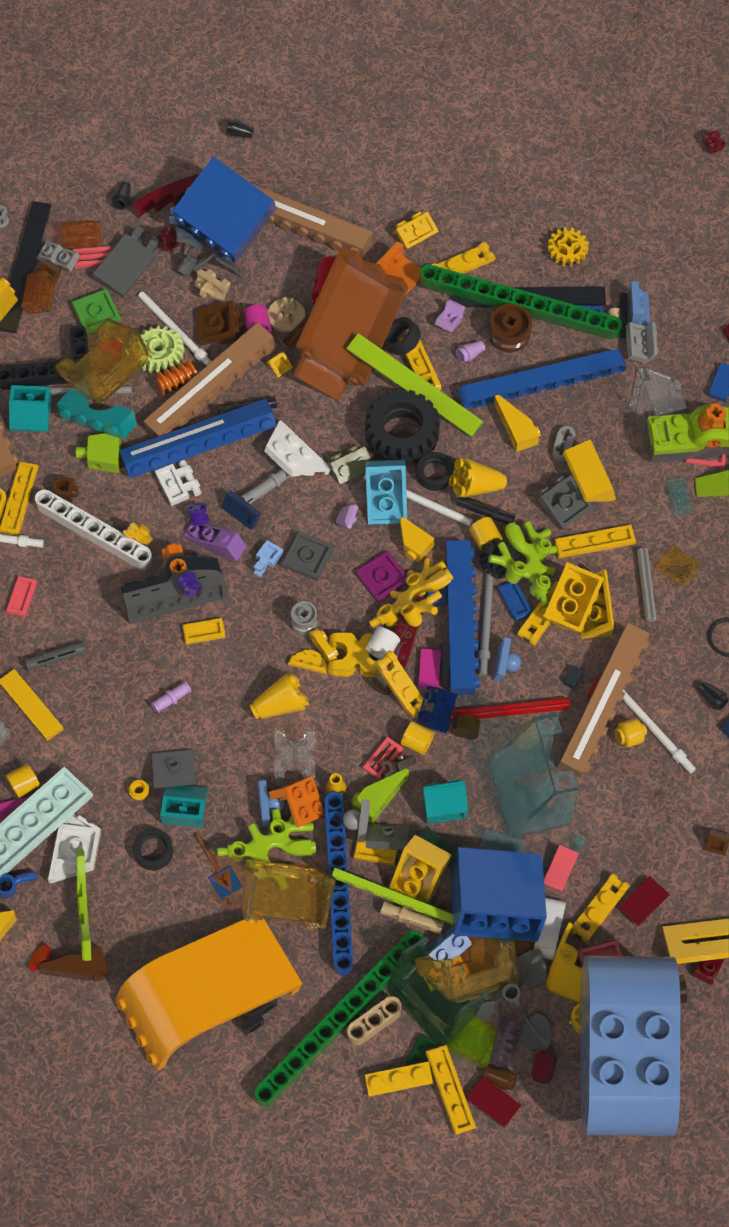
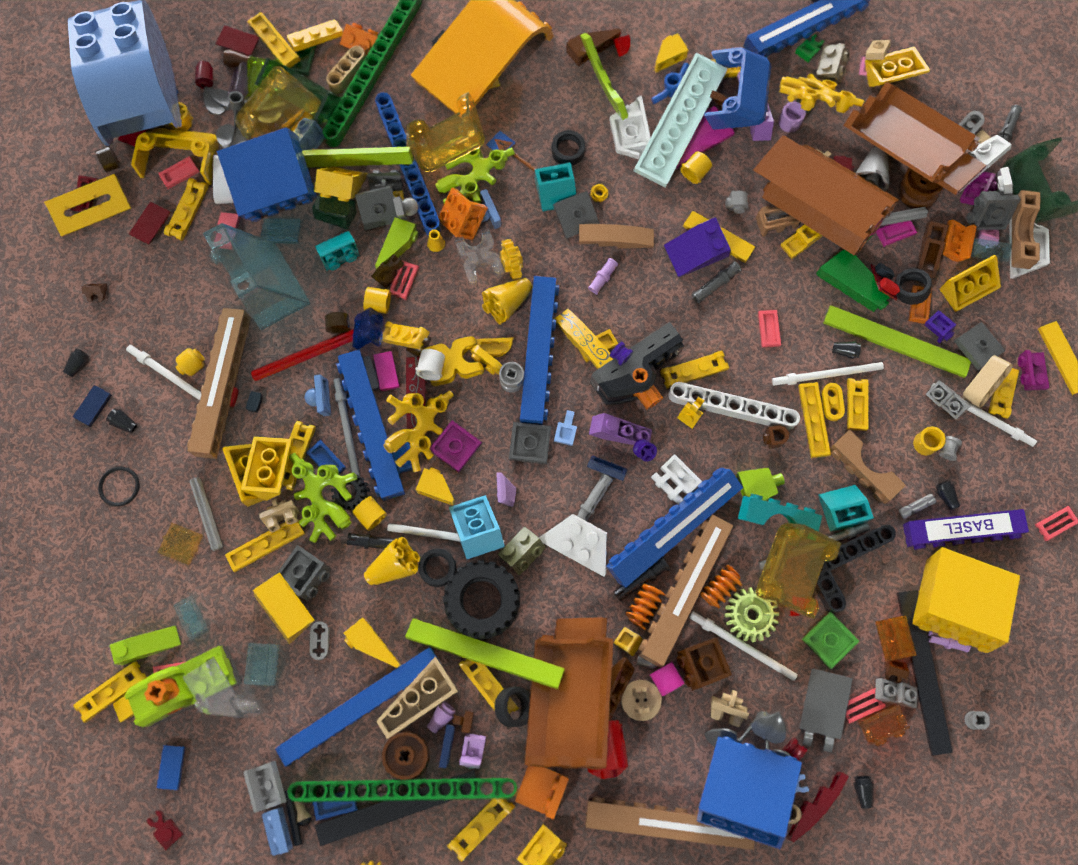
camera: 160 degrees right, 10 degrees up
(60, 692) = (698, 247): none -> dark purple slope
(111, 577) = (694, 369): none -> yellow plate
(140, 732) = (616, 235): none -> medium nougat slope
(216, 636) = (583, 338): none -> yellow slope
(252, 382) = (644, 605): none -> orange piece
(262, 733) = (511, 259): none -> yellow gear
(266, 641) = (538, 349): none -> blue brick
(345, 1059) = (355, 36): none -> orange bracket
(379, 872) = (378, 180): none -> dark grey hips
(449, 340) = (466, 721): none -> reddish brown tile
(471, 326) = (447, 746): none -> dark blue tile
(488, 361) = (422, 695): none -> tan wedge
(583, 556) = (278, 512): none -> tan hips
(622, 438) = (261, 664): none -> clear light blue plate

